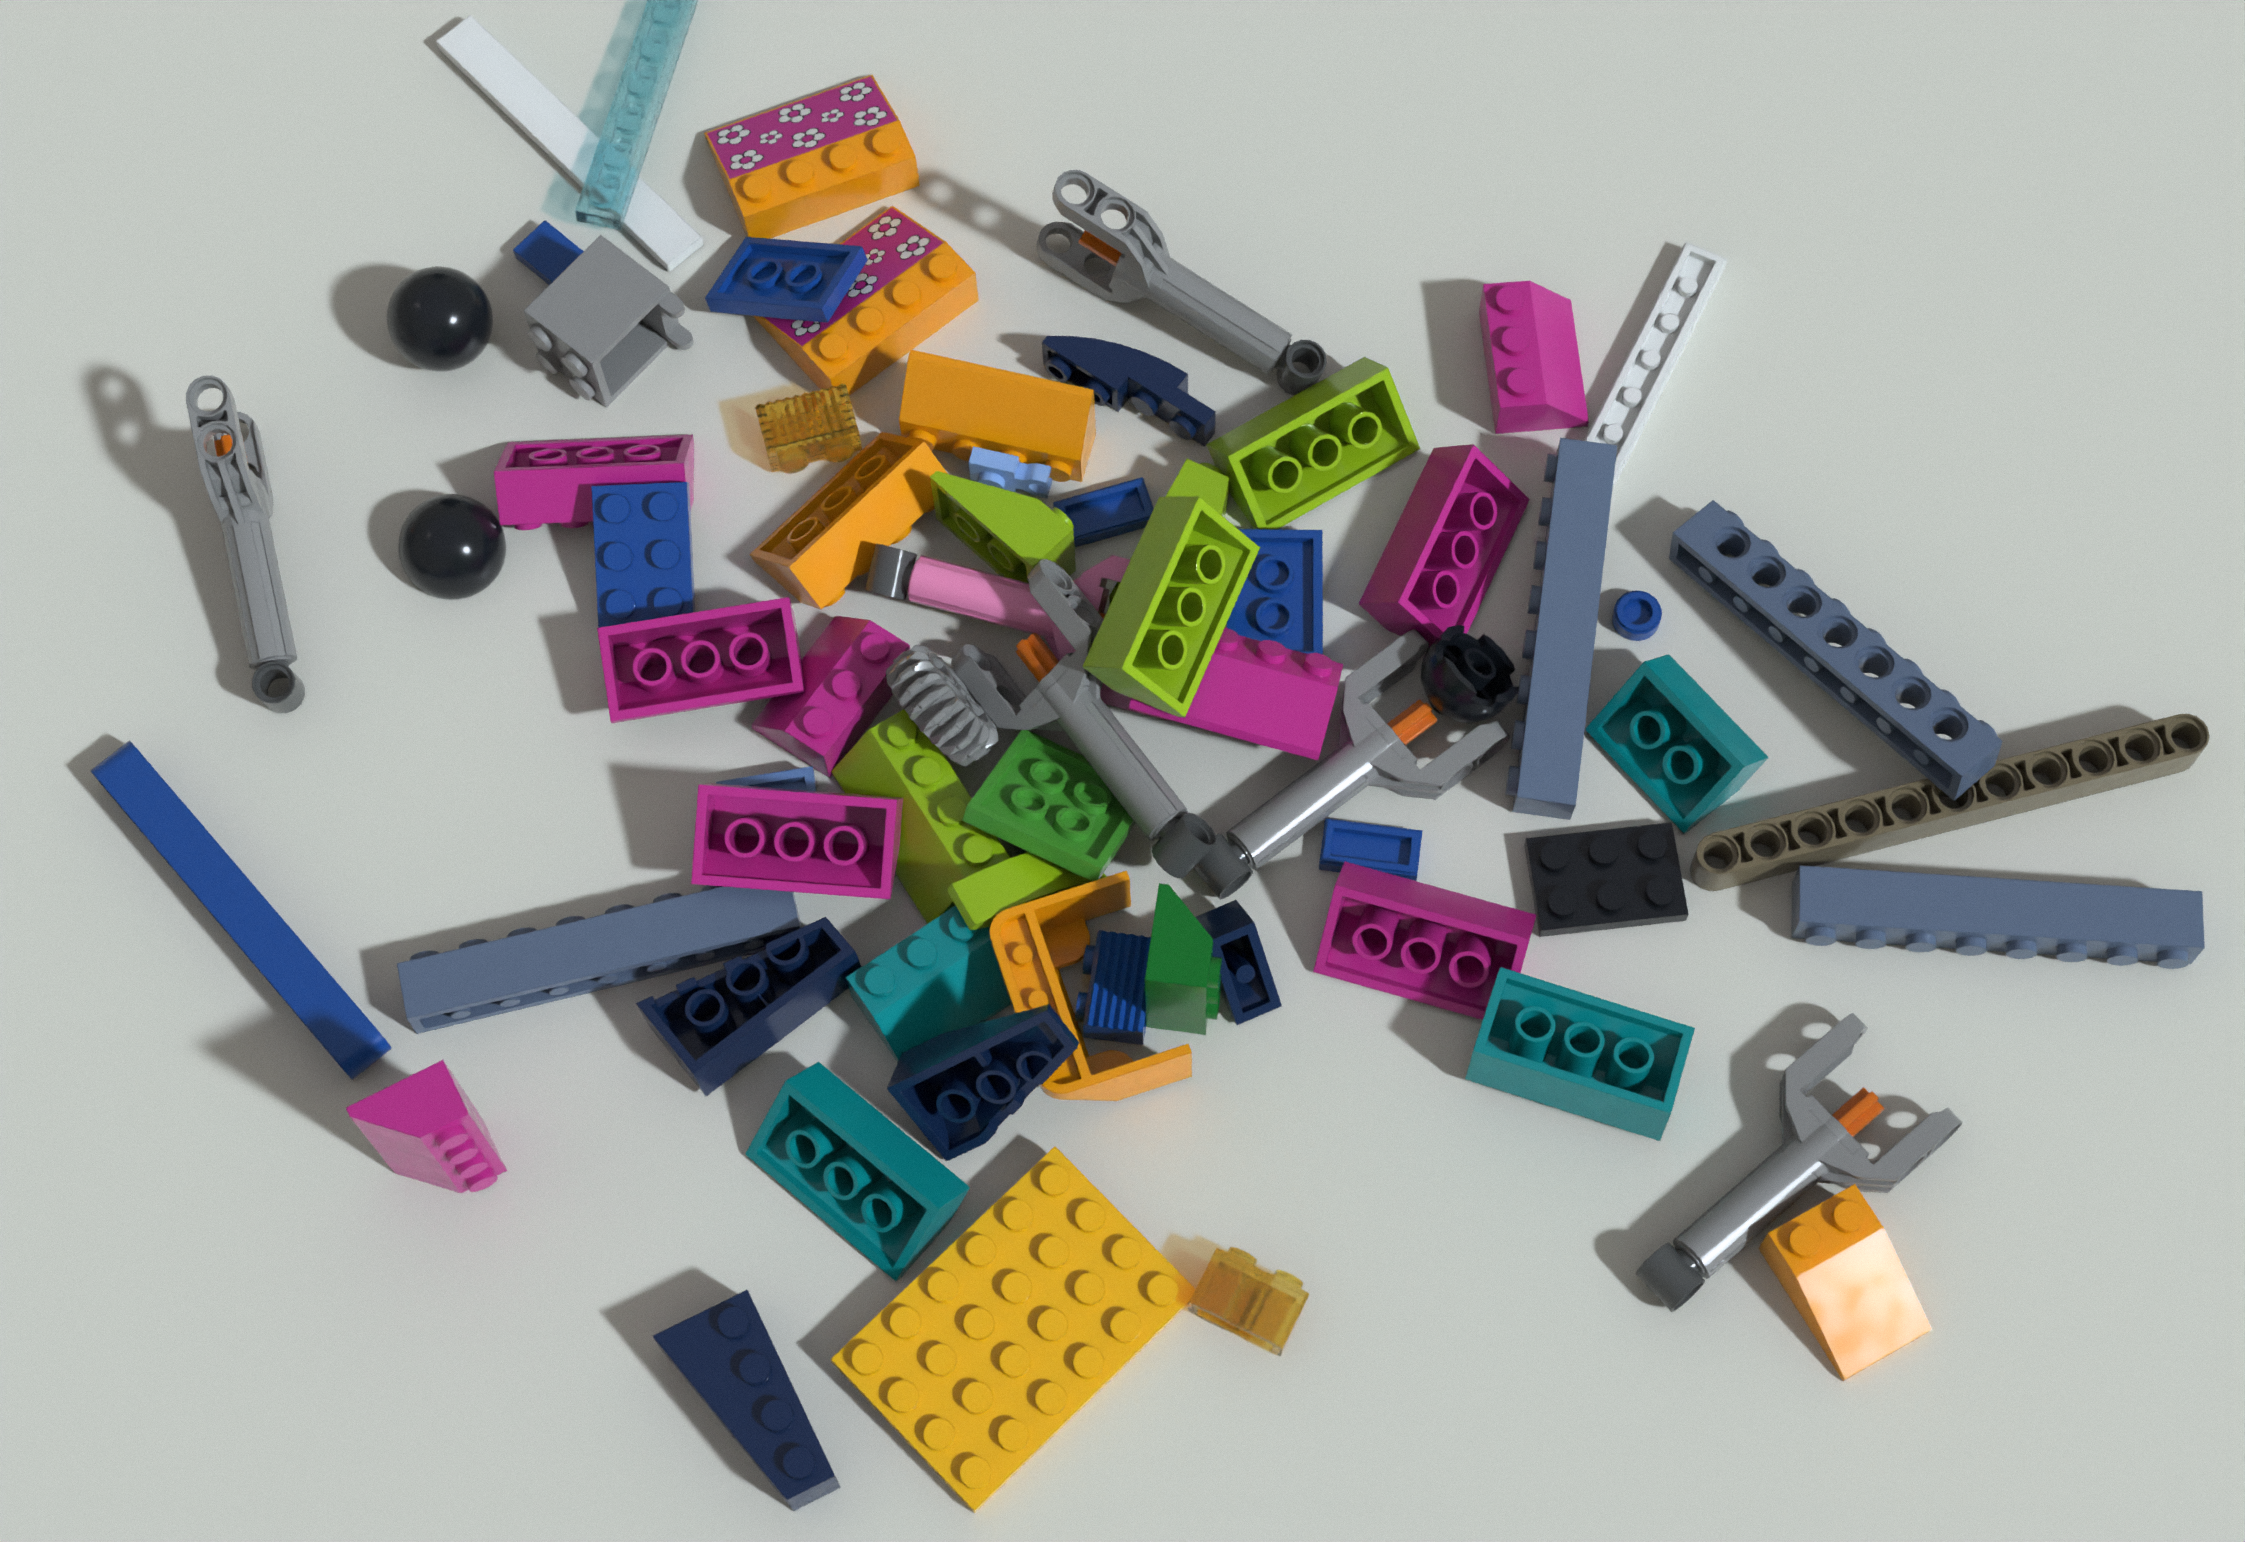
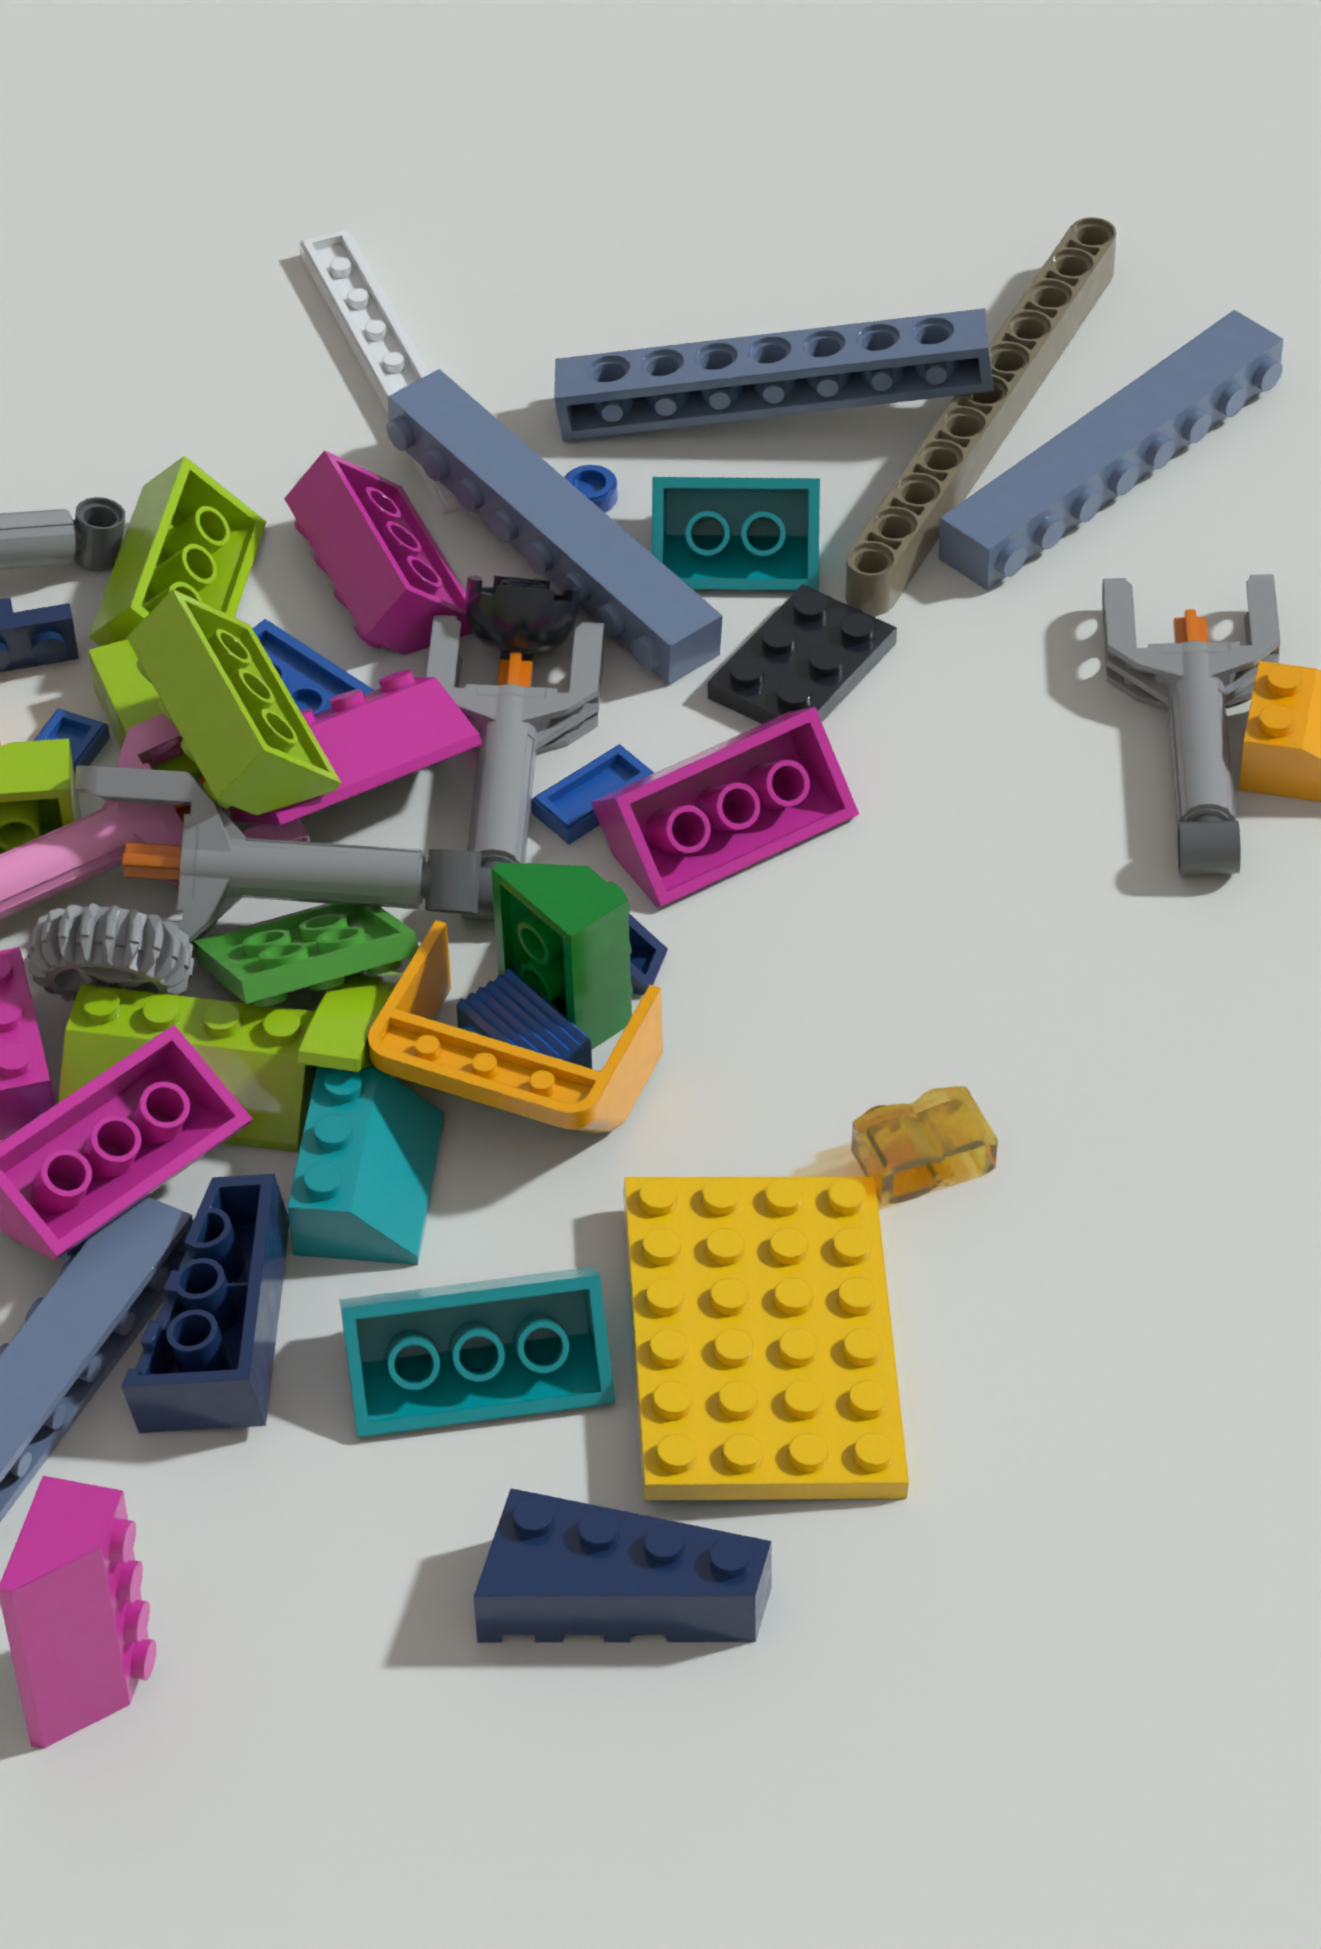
camera: 50 degrees left, 20 degrees down
(978, 1076) = (501, 1165): dark blue wedge -> none
(1531, 358) = (273, 399): dark pink slope -> none
(1580, 1054) = (948, 766): teal slope -> none

